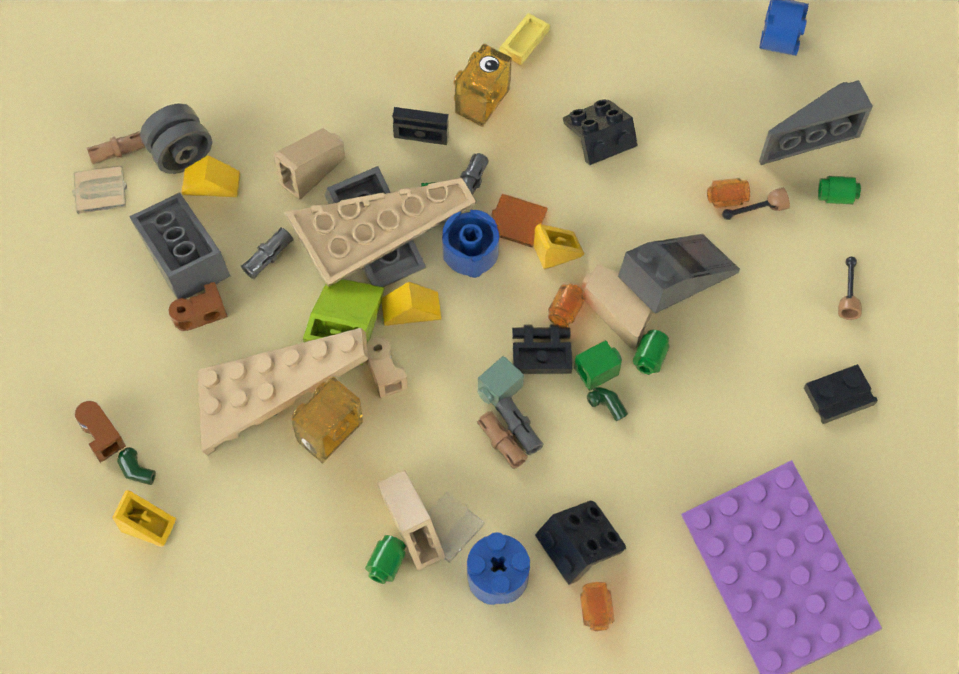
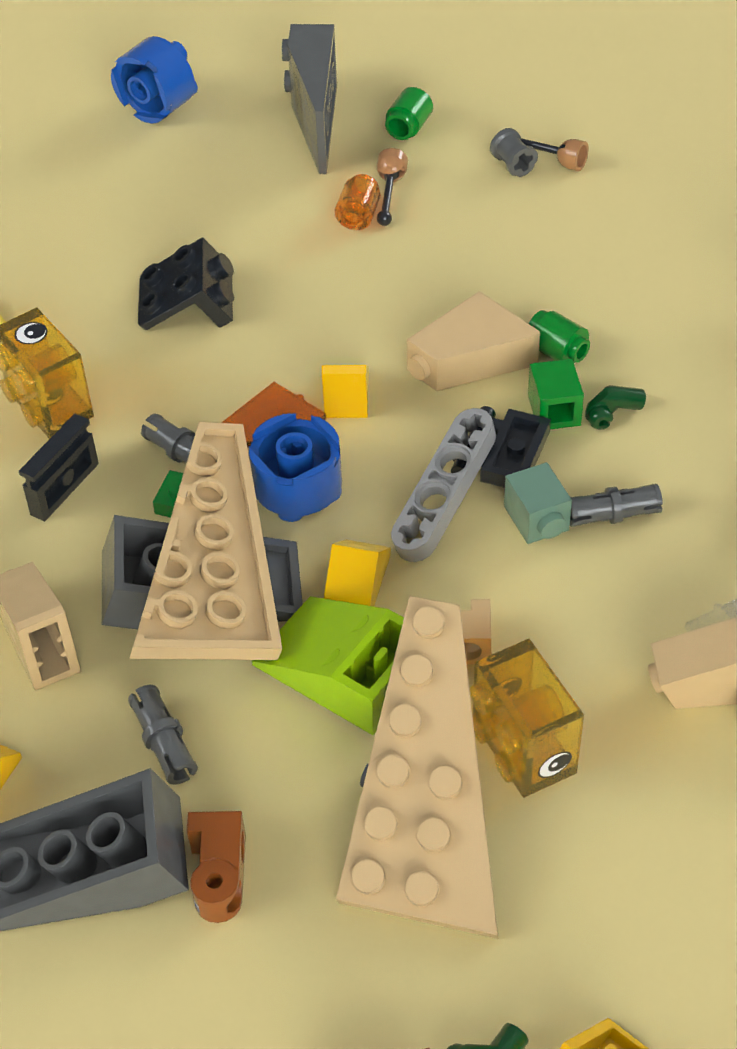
camera: 65 degrees left, 15 degrees down
(491, 330) = (450, 485): none -> light grey beam
(502, 439) = (627, 531): medium nougat pin -> none
(566, 305) = (443, 396): clear orange brick -> none
(674, 269) = (462, 271): dark grey slope -> none
(830, 268) = (517, 156): none -> dark grey bush
(840, 394) = (685, 199): black plate -> none

